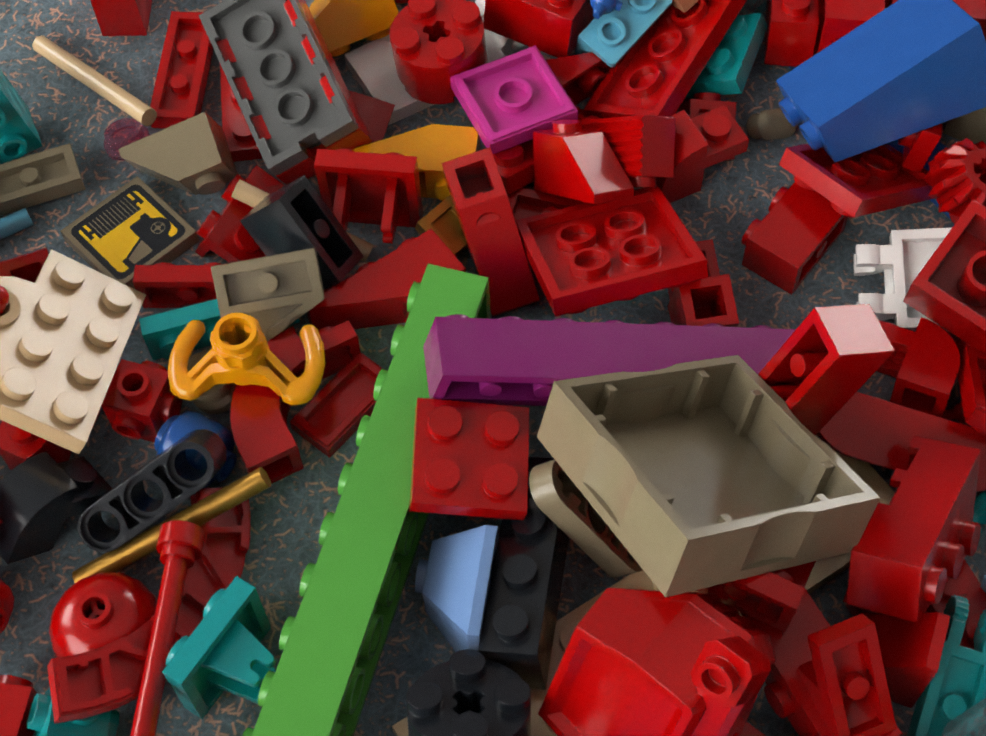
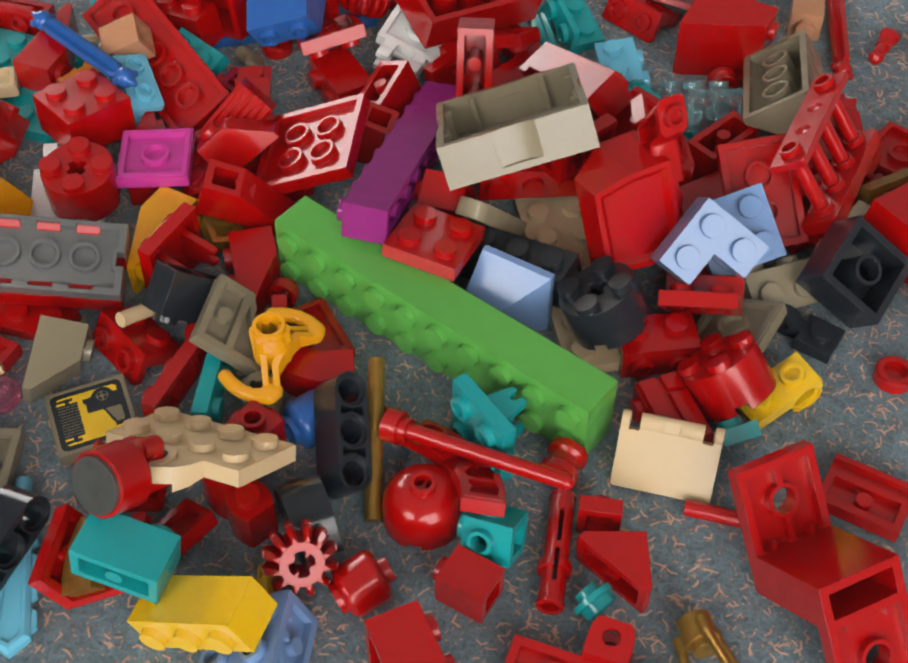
camera: 70 degrees left, 10 degrees down
(382, 331) = (281, 284): none -> red hinge
(782, 290) = (392, 85): none -> red brick

